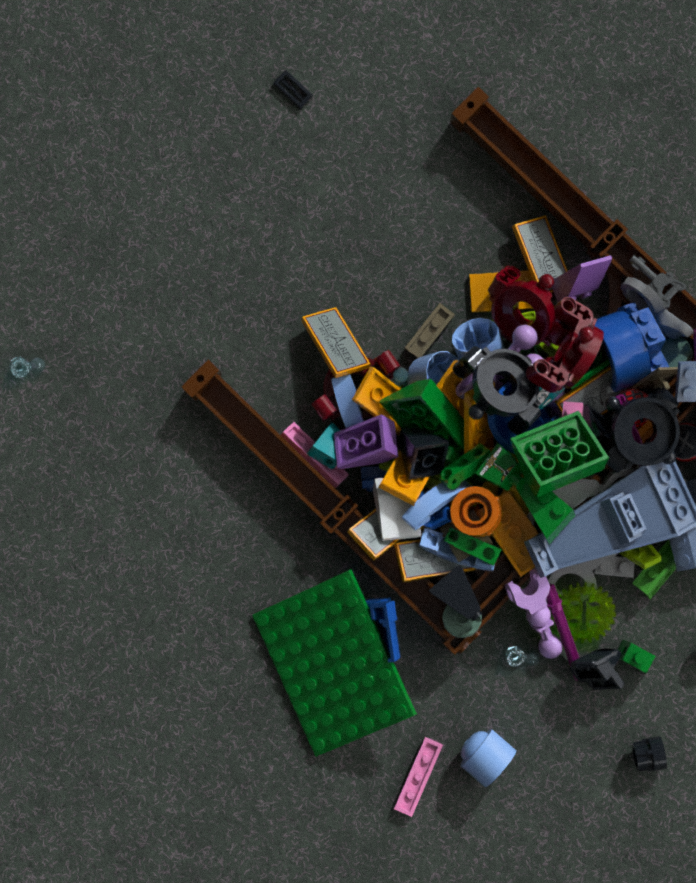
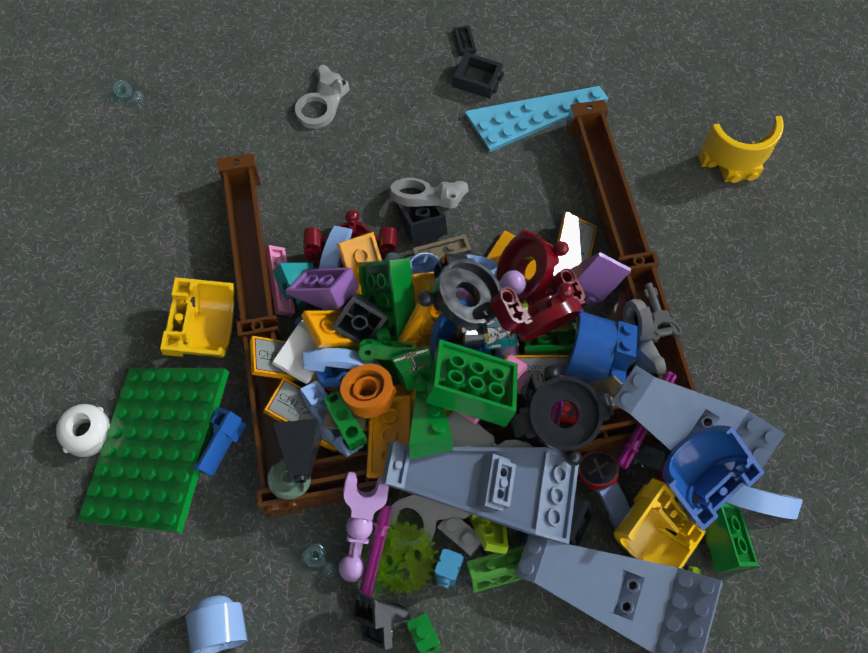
camera: 30 degrees right, 20 degrees down
(209, 236) = (329, 92): none -> light grey animal
(249, 699) = (92, 440): none -> white piece
(284, 540) = (202, 328): none -> yellow piece
(335, 342) = (360, 206): light grey tile -> none
(341, 140) = (474, 86): none -> black window
(388, 310) = (423, 222): none -> black slope
(395, 279) = (443, 195): none -> light grey animal
(402, 148) = (515, 120): none -> medium azure wing
(418, 776) = (145, 604): bright pink plate -> none
(623, 598) = (448, 568): none -> dark azure brick
(634, 58) = (737, 159): none -> yellow piece

